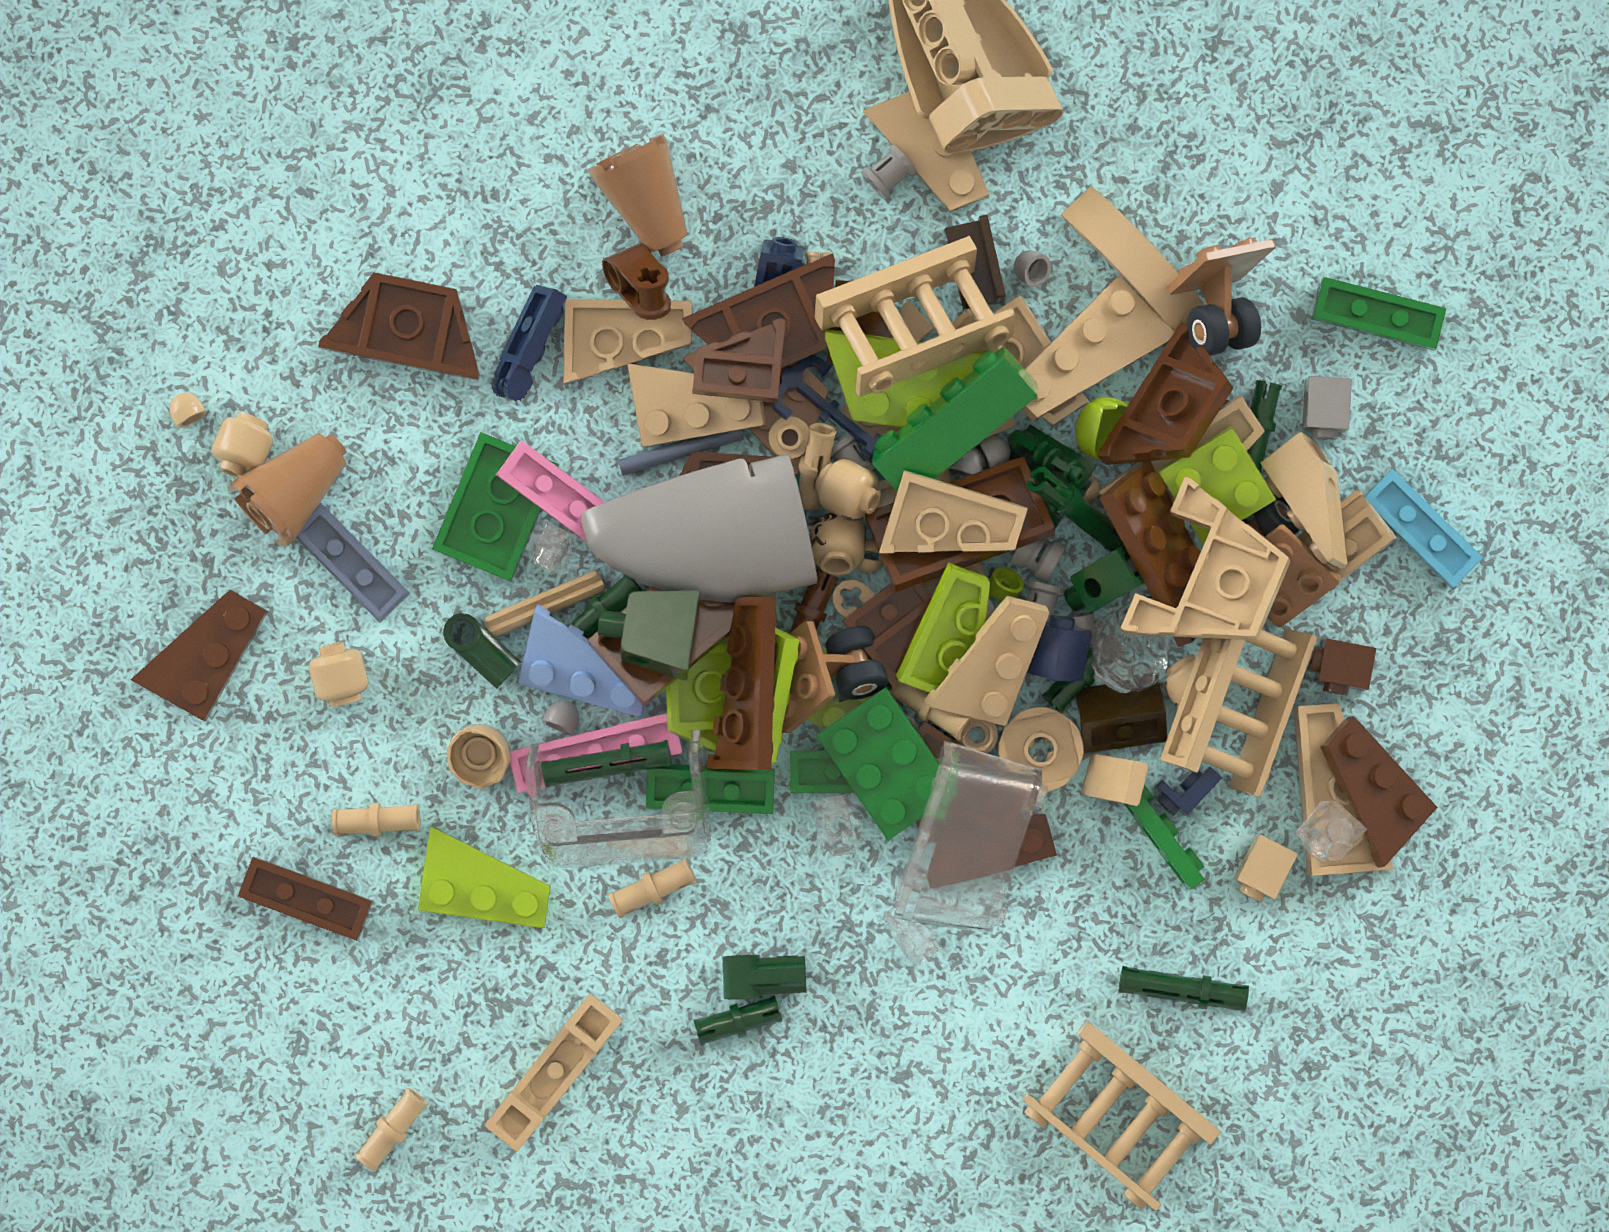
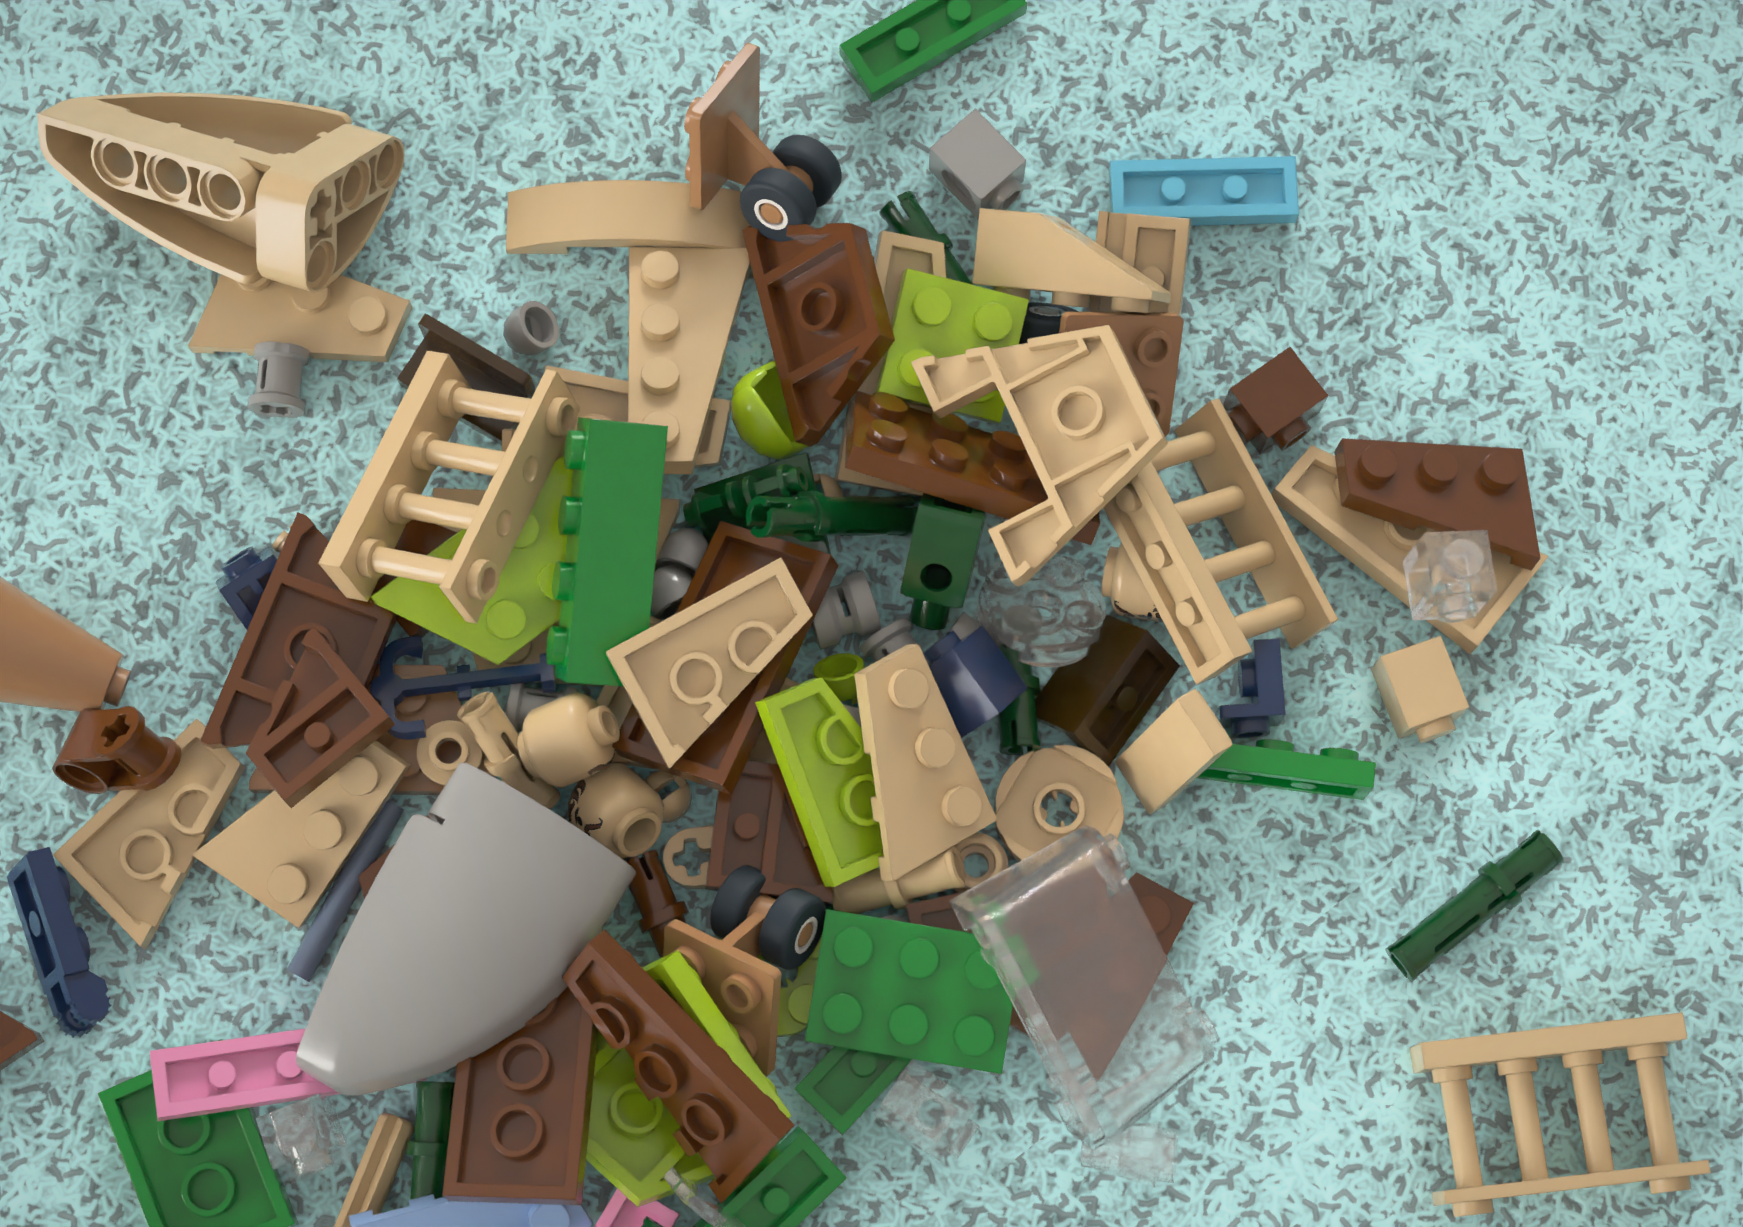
camera: 50 degrees left, 10 degrees down
(655, 630) = (506, 1105): torso -> none

